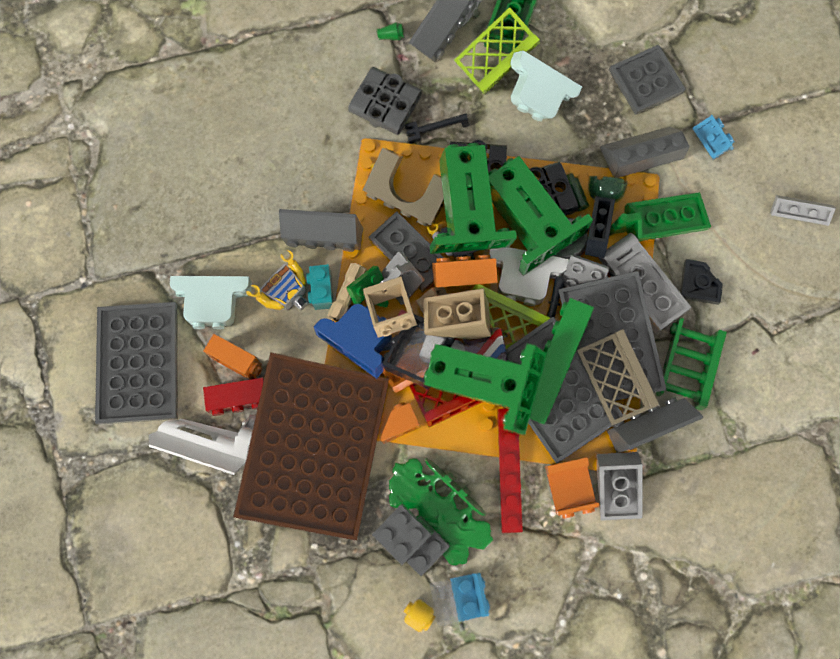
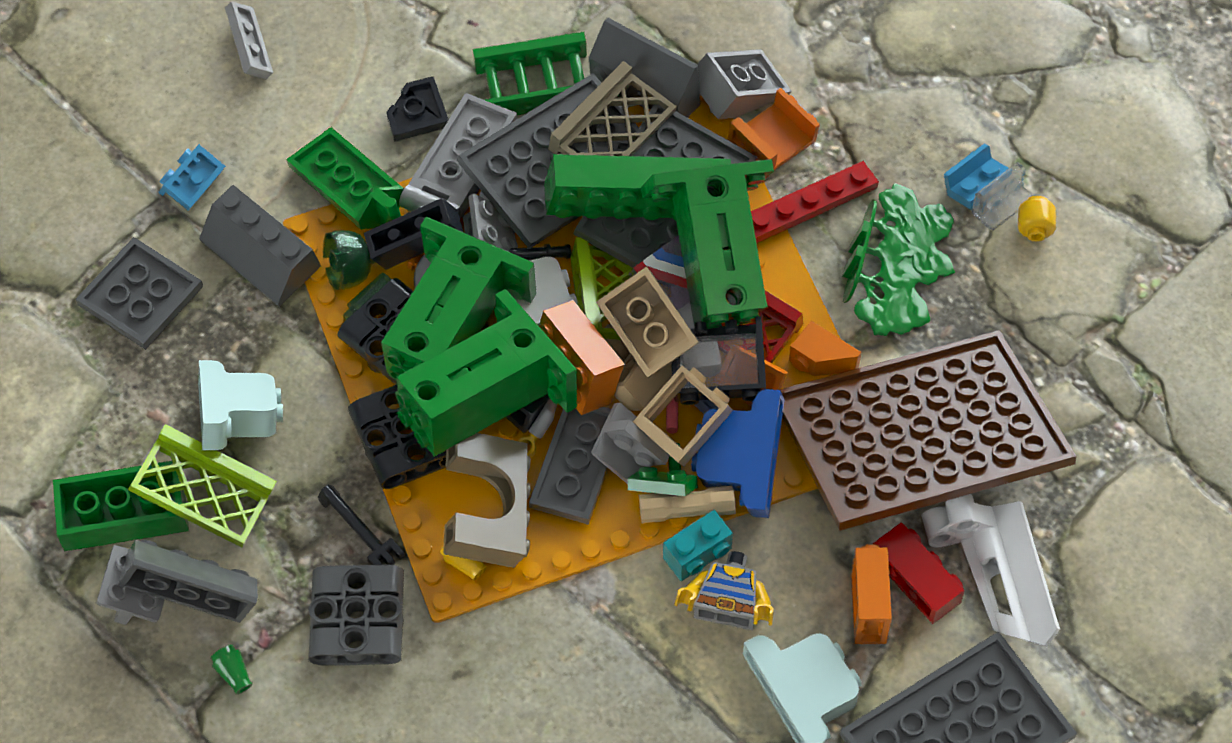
camera: 120 degrees left, 15 degrees down
(320, 229) = (618, 583): dark grey slope -> none
(411, 540) = (957, 263): dark grey bracket -> none

